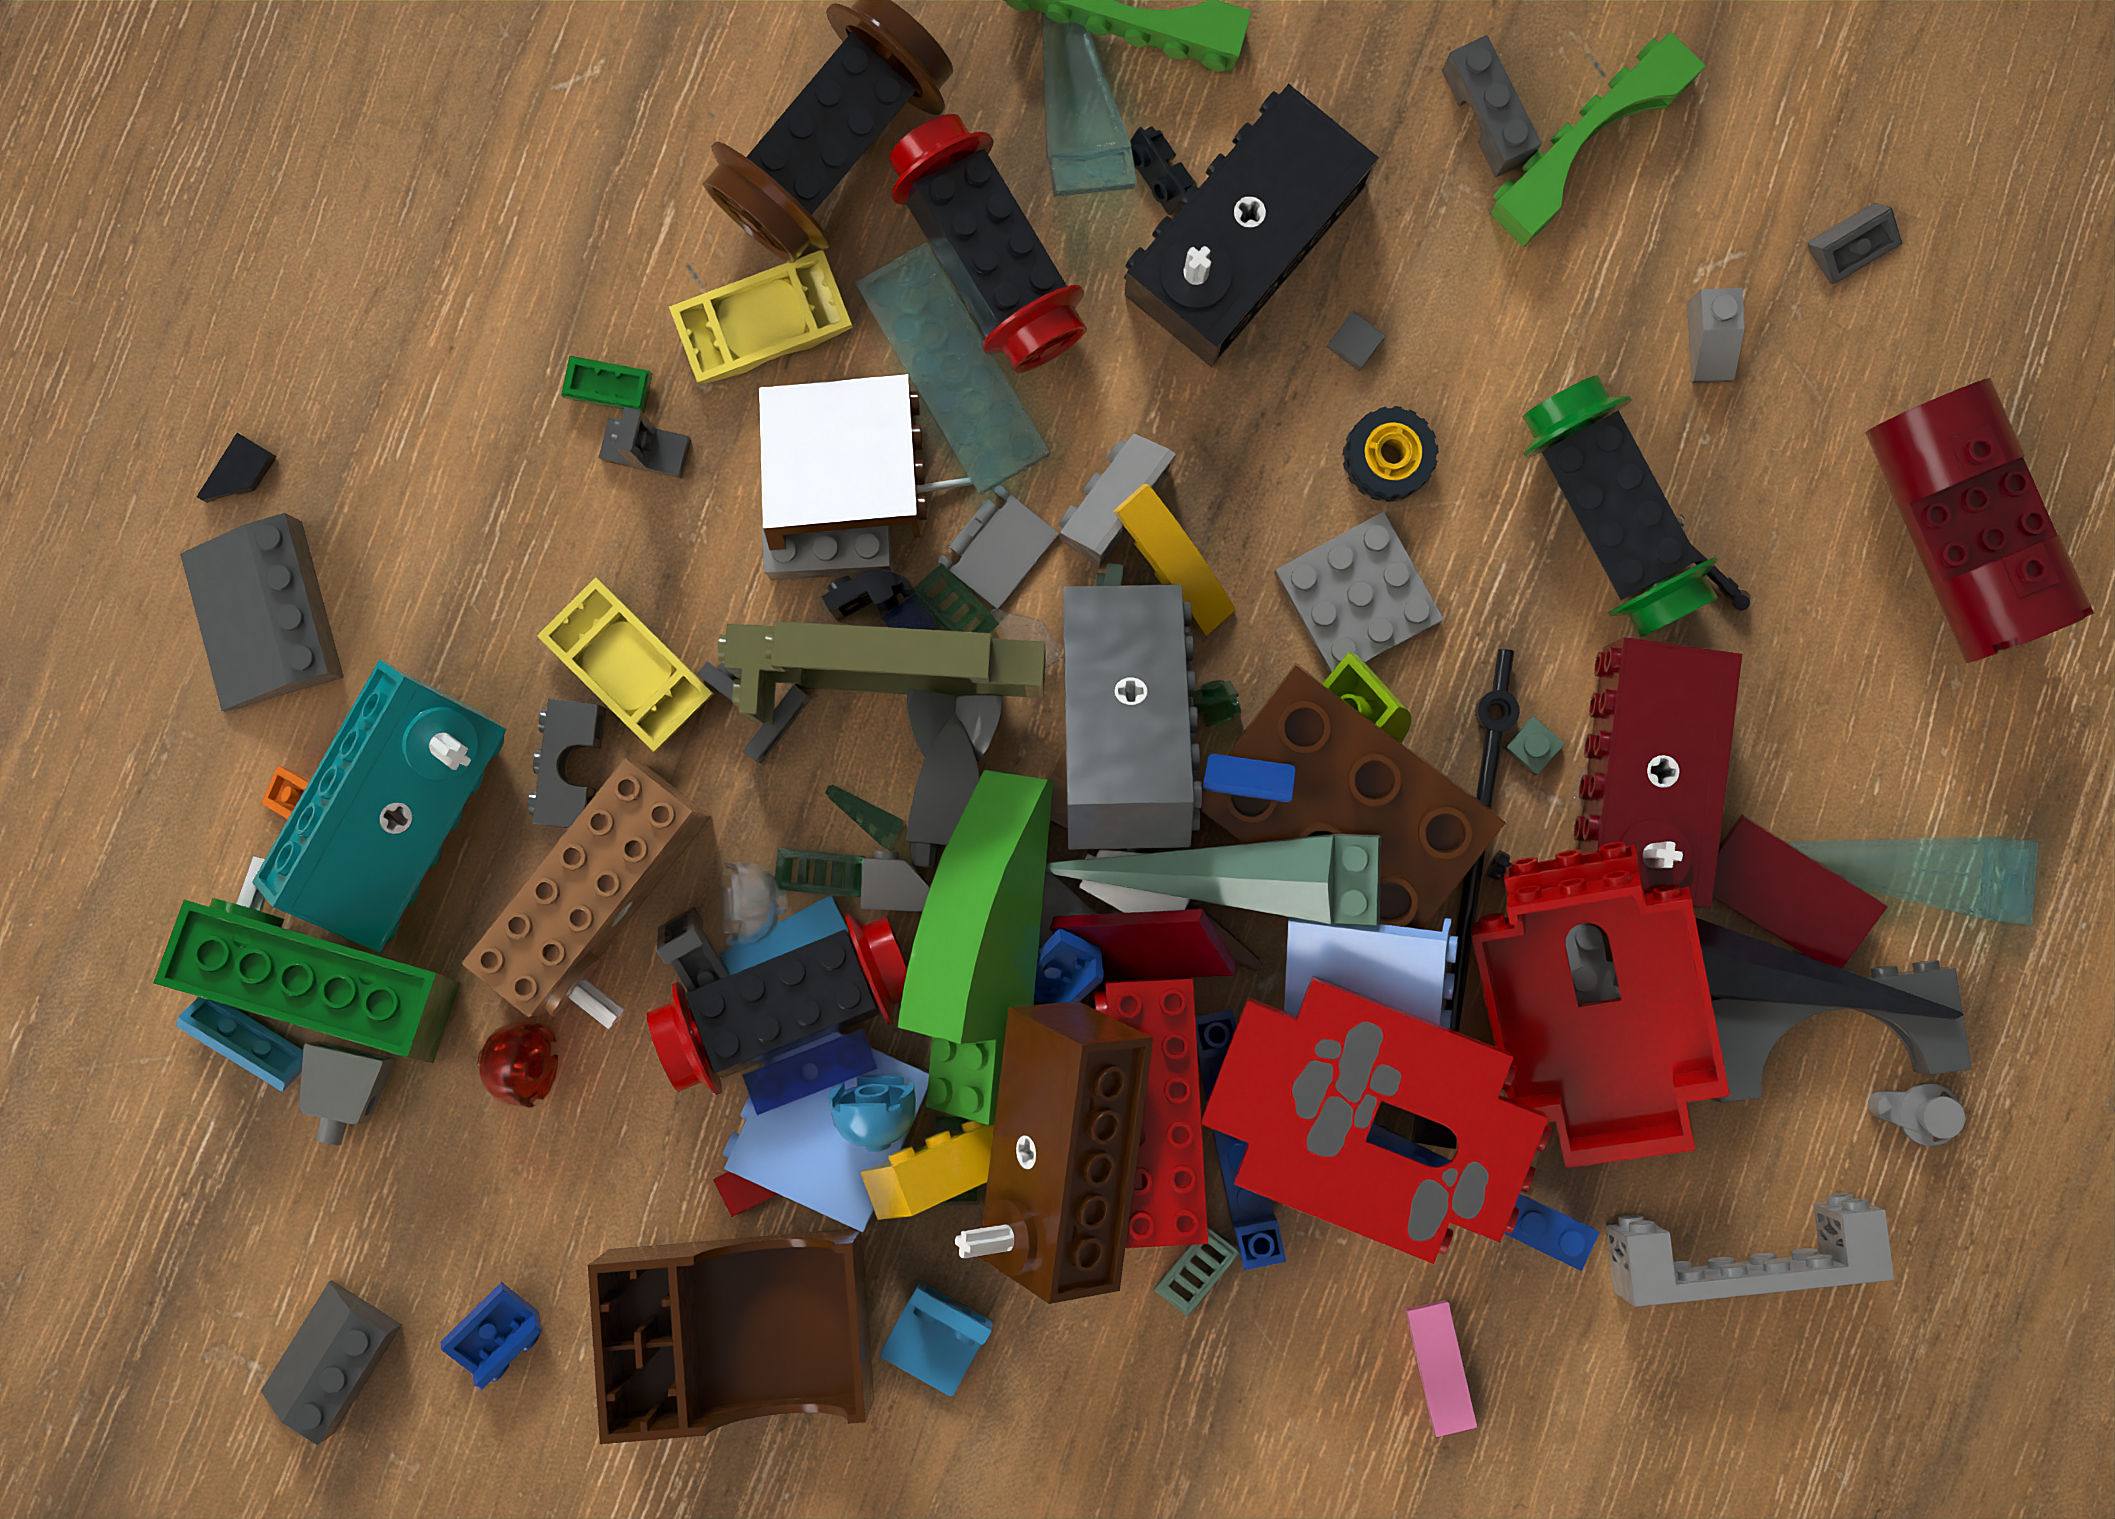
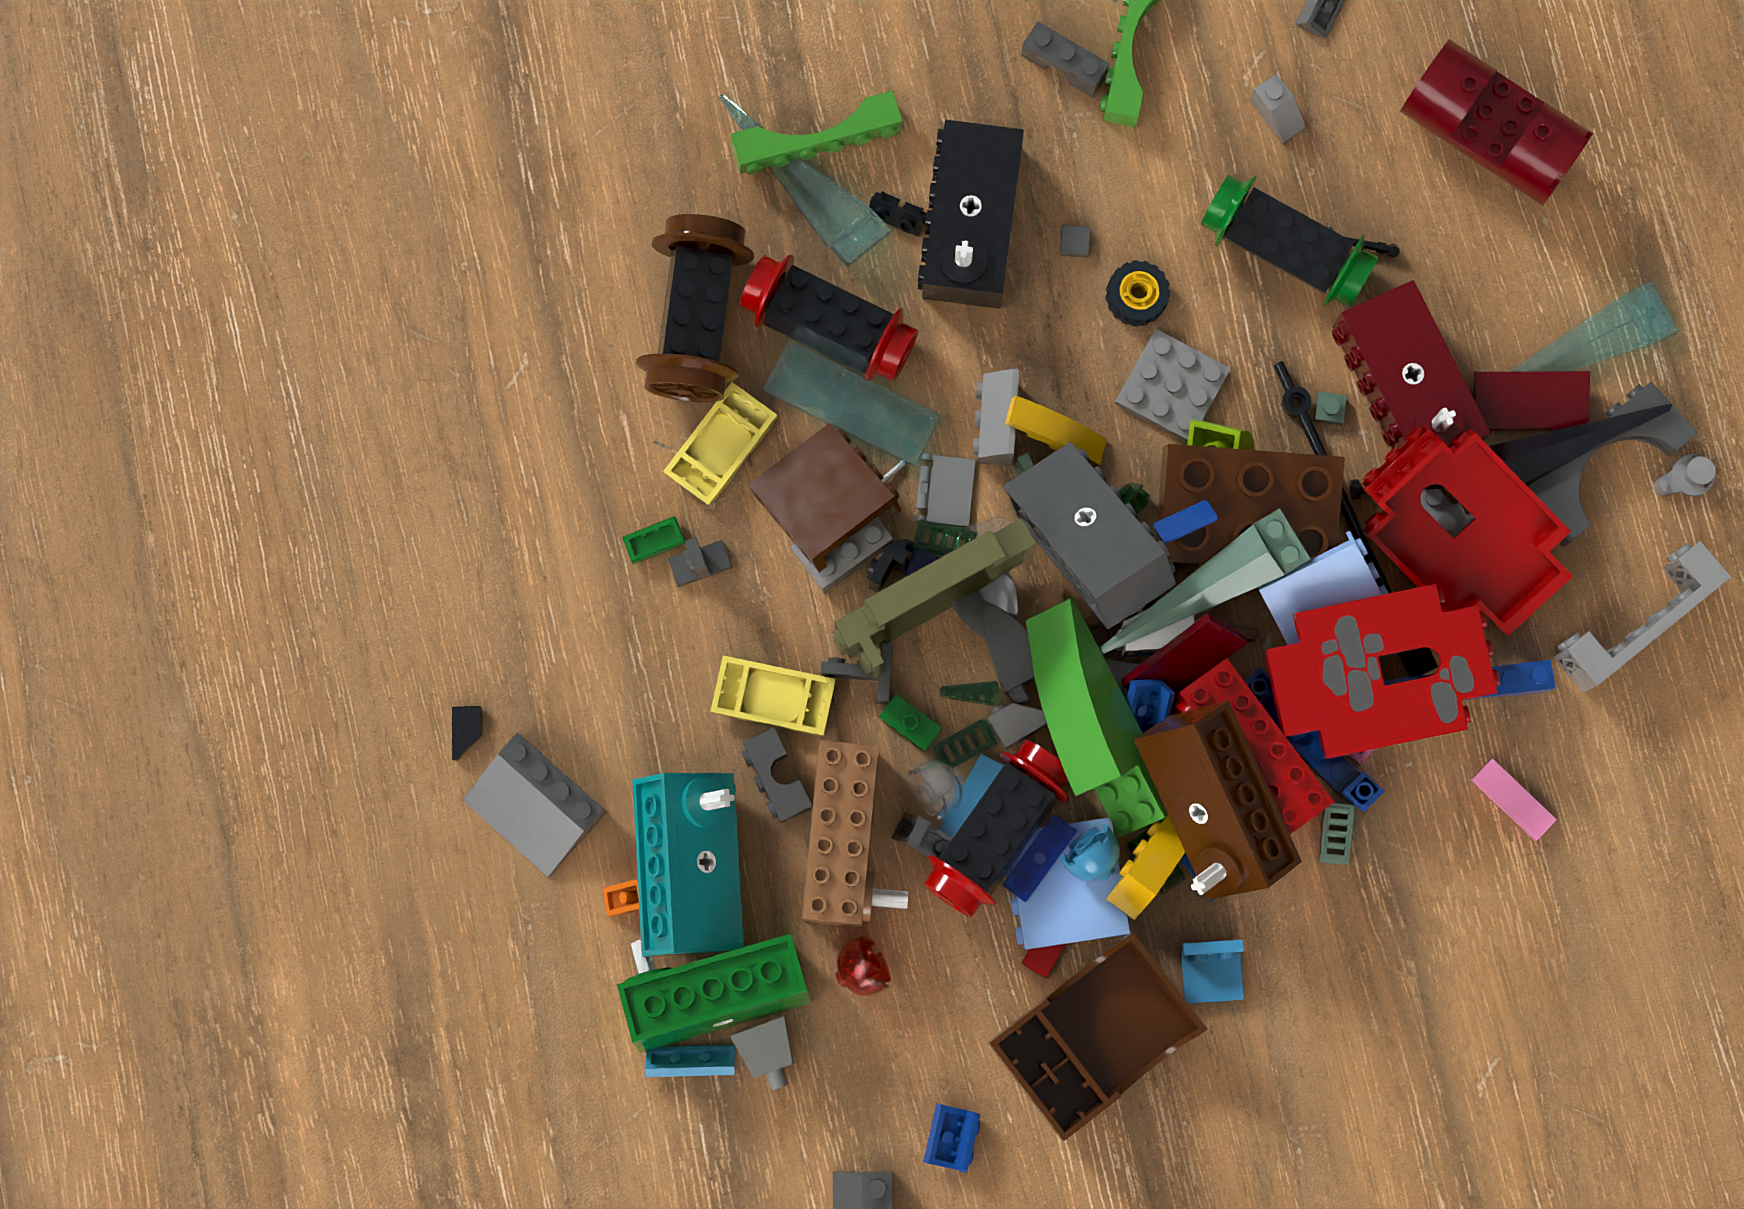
camera: 30 degrees left, 5 degrees down
(771, 803) = (910, 722): none -> green plate

